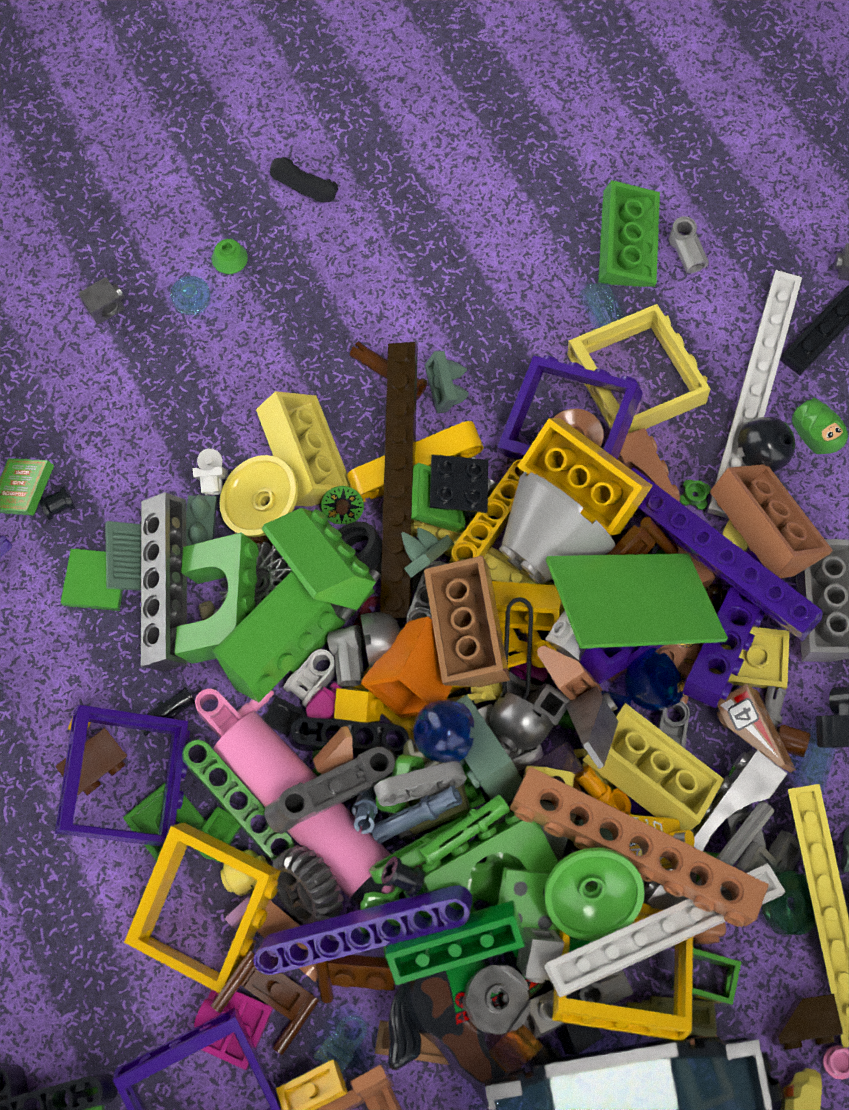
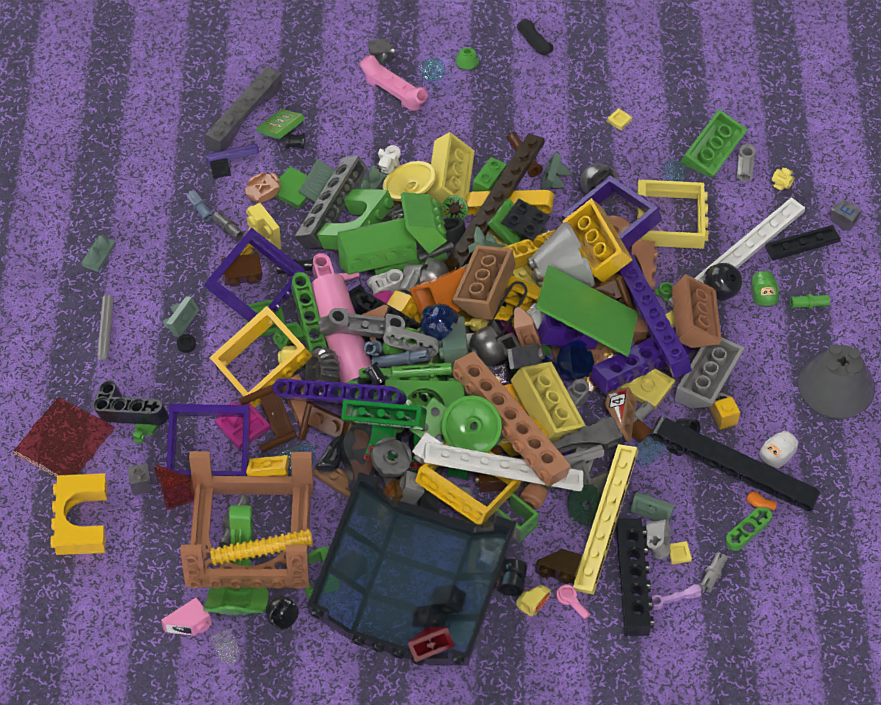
camera: 25 degrees right, 15 degrees down
(31, 693) = (228, 226): none -> flat silver pin
(44, 877) = (182, 316): none -> sand green tile
(49, 603) = (262, 187): none -> nougat tile
(72, 925) = (186, 343): none -> black tile
(85, 676) = (264, 224): none -> light yellow plate
(122, 341) = (378, 75): none -> bright pink plate
(364, 433) = (489, 175): none -> bright green brick
(484, 254) = (619, 119): none -> light yellow tile
(509, 362) = (594, 175): none -> flat silver cylinder
(749, 246) = (782, 178): none -> light yellow gear

